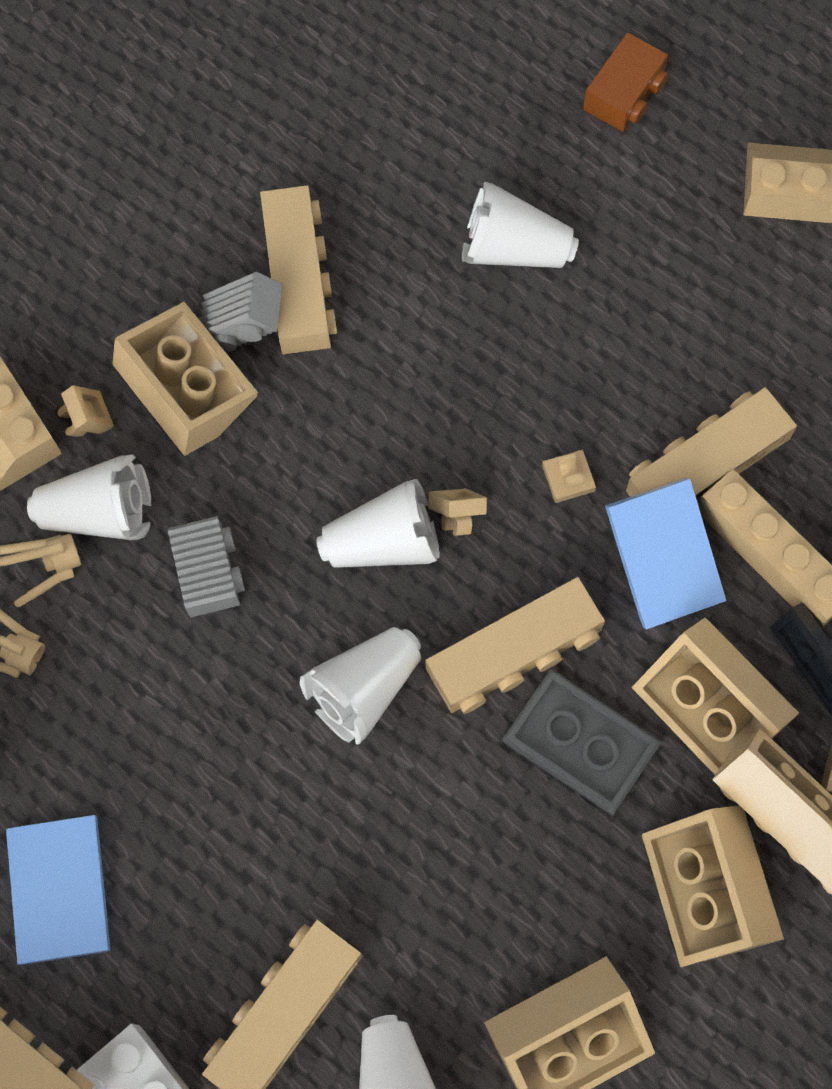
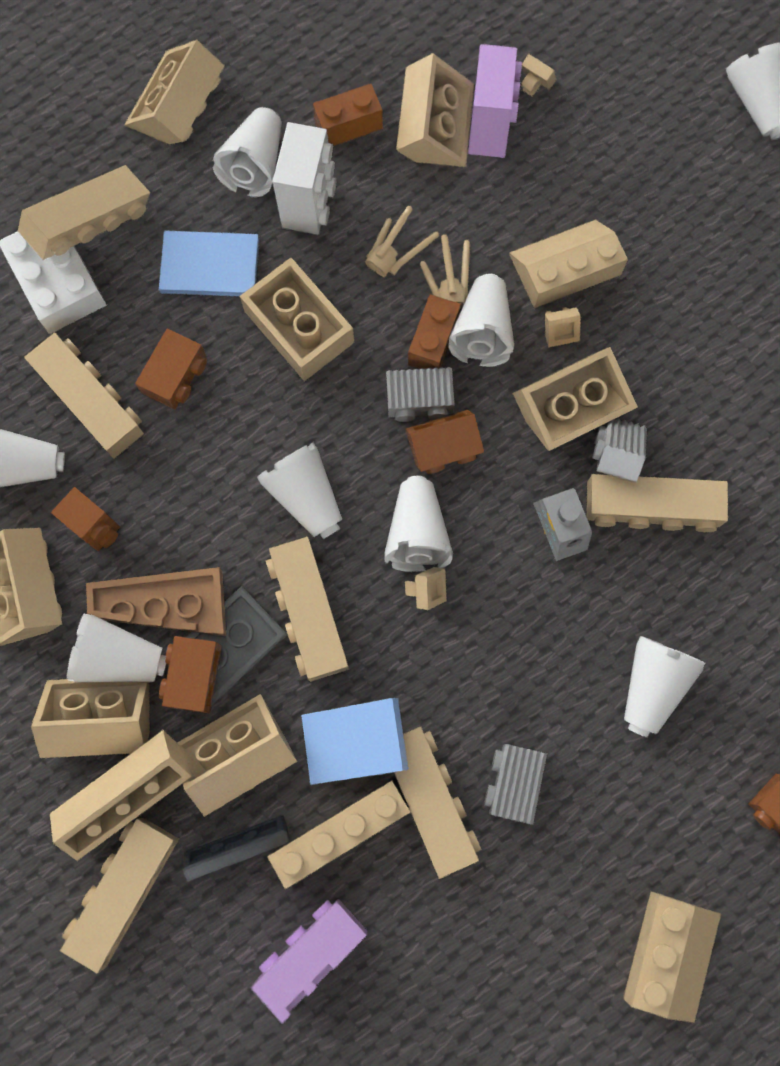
camera: 100 degrees right, 5 degrees up
(122, 562) = (433, 333): none -> dark orange brick
(128, 739) = (297, 319): none -> tan brick
(225, 898) = (172, 369): none -> dark orange brick
(264, 521) = (445, 441): none -> dark orange brick
(343, 365) = (563, 523): none -> light grey torso
(463, 951) = (86, 520): none -> dark orange brick
(544, 827) = (170, 601): none -> medium nougat wing
(568, 476) = (440, 683): tan tile -> none
(631, 879) = (112, 654): none -> white cone
(633, 767) = (190, 674): none -> dark orange brick
(665, 368) = (516, 783): none -> light grey brick

